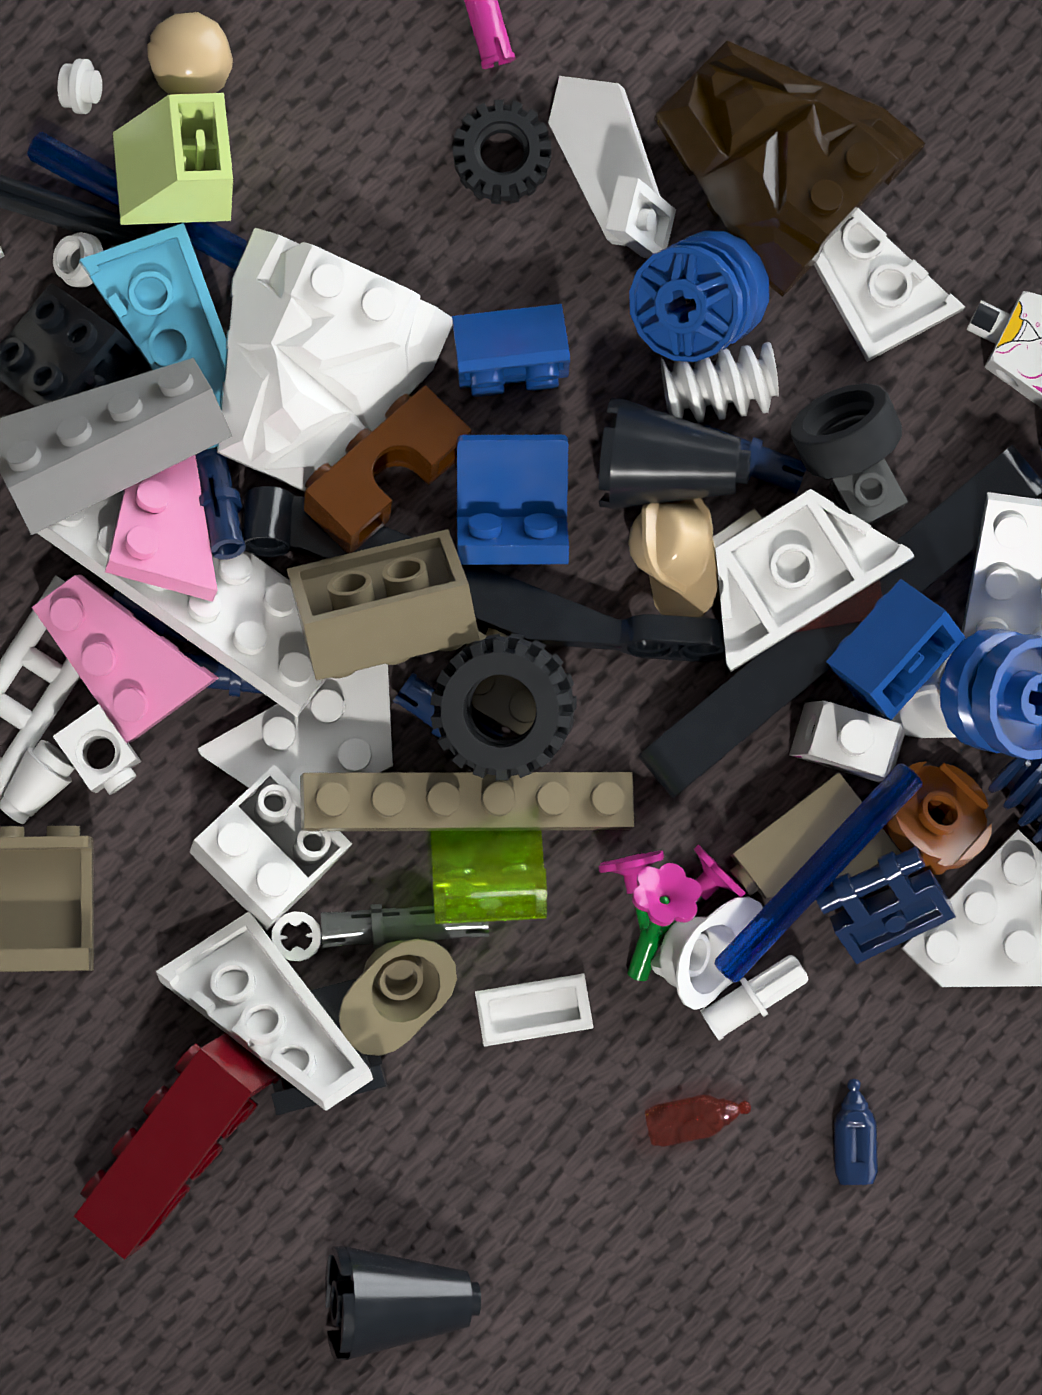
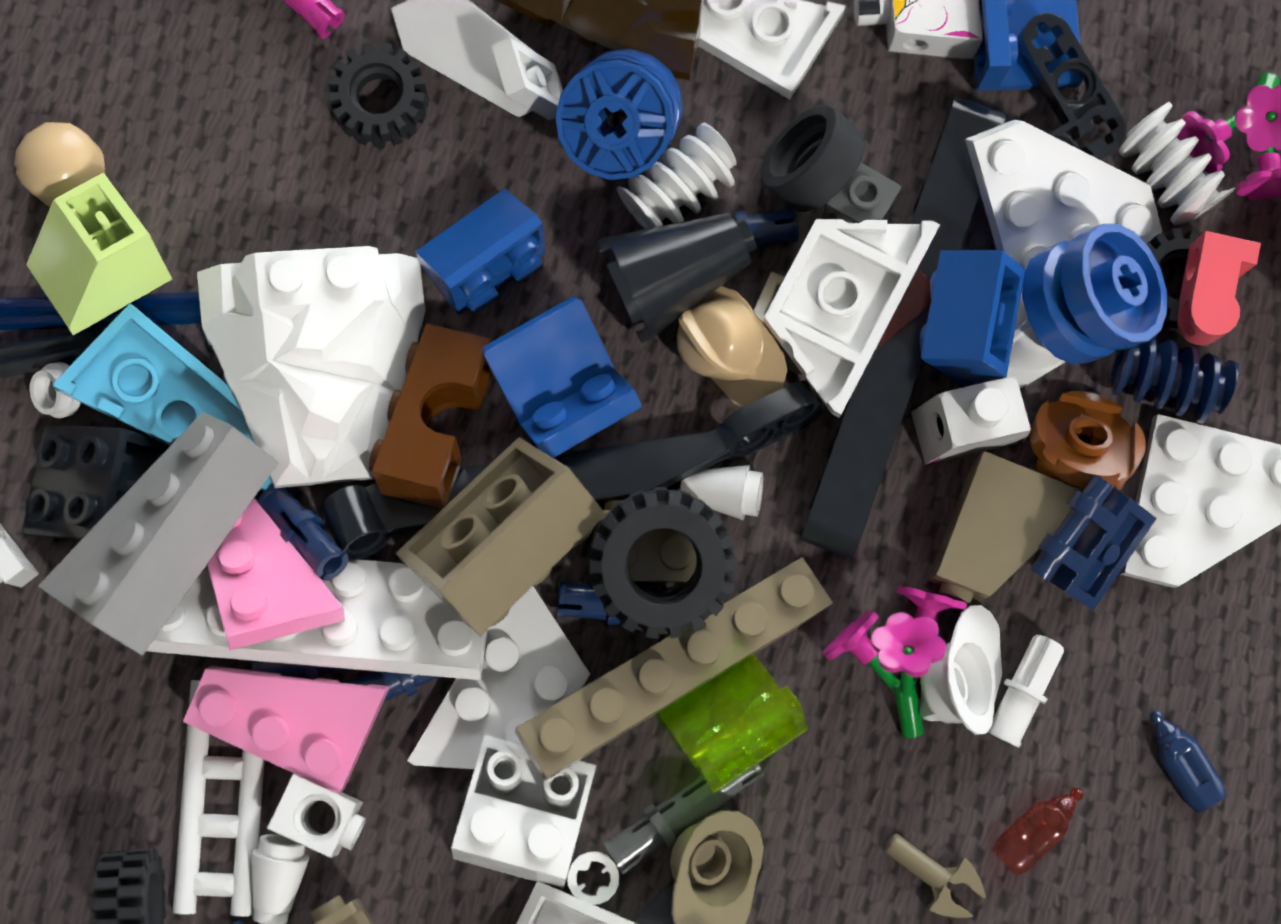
camera: 35 degrees left, 5 degrees down
(534, 1009) = (841, 817): white tile -> none
(584, 1103) = (936, 876): none -> dark tan bar
(601, 677) = (728, 490): none -> white cone
(818, 872) = (1023, 548): clear blue axle -> none

